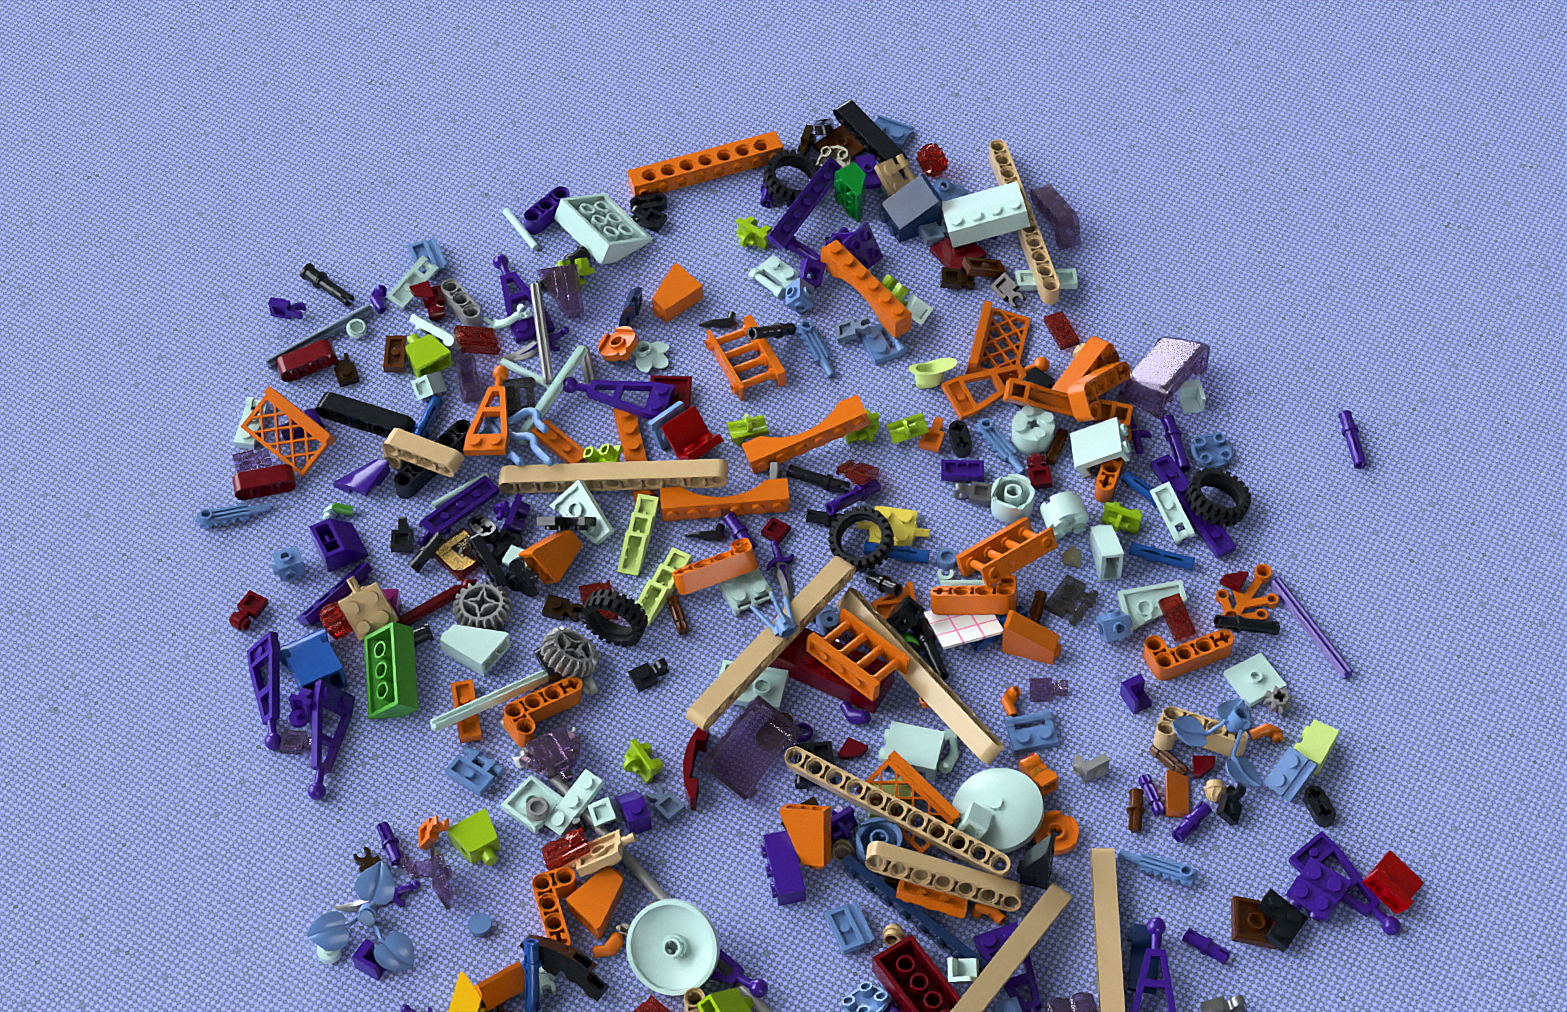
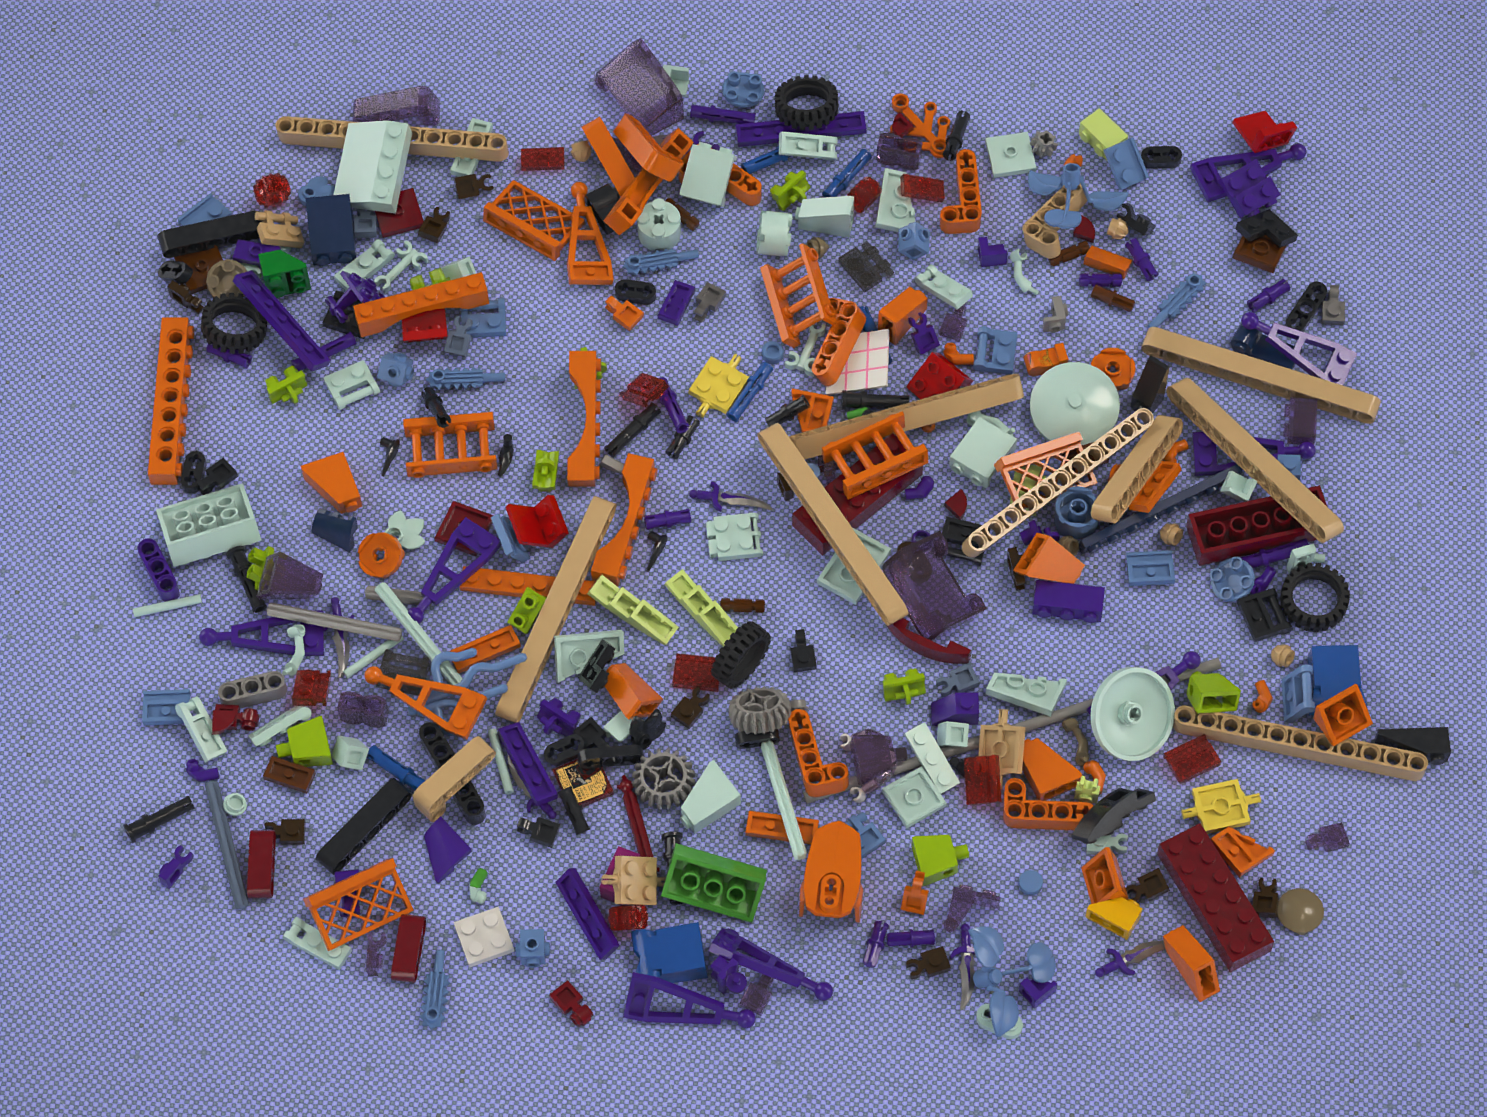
camera: 70 degrees left, 10 degrees up
(290, 529) = (484, 937): none -> white plate
(337, 543) = (526, 895): dark purple slope -> none
(375, 817) = (875, 944): none -> dark purple axle
(421, 758) = (836, 862): none -> orange piece
(531, 970) = (1112, 839): blue pin -> none
(537, 809) = (927, 792): light grey tile -> none
(584, 941) = (1087, 790): none -> yellowish green plate
(674, 863) = (1033, 694): none -> light aqua wing
(716, 568) = (714, 541): orange beam -> none
(756, 401) = (505, 454): none -> black bar
(775, 530) = (675, 488): dark red tile -> none
(784, 625) = (829, 500): medium blue plant -> none
(815, 269) = (371, 348): dark purple brick -> none
(849, 302) = (425, 326): none -> red bracket
(852, 517) = (737, 388): black tyre -> none
(898, 248) = (366, 263): none -> light aqua plate
(905, 614) = (839, 403): black brick -> none
(907, 428) = (611, 328): lime hips -> none
(916, 275) = (408, 257): none -> light aqua bar
(932, 372) = (546, 282): yellowish green piece -> none
(975, 821) = (1090, 424): light aqua panel -> none
(980, 692) = (937, 377): none -> red bracket
(983, 267) = (435, 195): reddish brown plate -> none
(1012, 498) = (734, 270): light aqua brick -> none
(1015, 665) = (924, 336): none -> dark purple plate
(1037, 606) = (862, 298): reddish brown axle -> none
(1038, 472) = (712, 240): dark red plate -> none
(1076, 665) = (943, 287): none -> light aqua plate
(1120, 727) = (1023, 282): none -> light aqua piece
(1142, 570) = (865, 193): none -> clear red gear
(1189, 987) = (1306, 300): none -> black beam
(1204, 584) = (899, 151): none -> clear purple brick
(1311, 628) = (972, 89): axle -> none

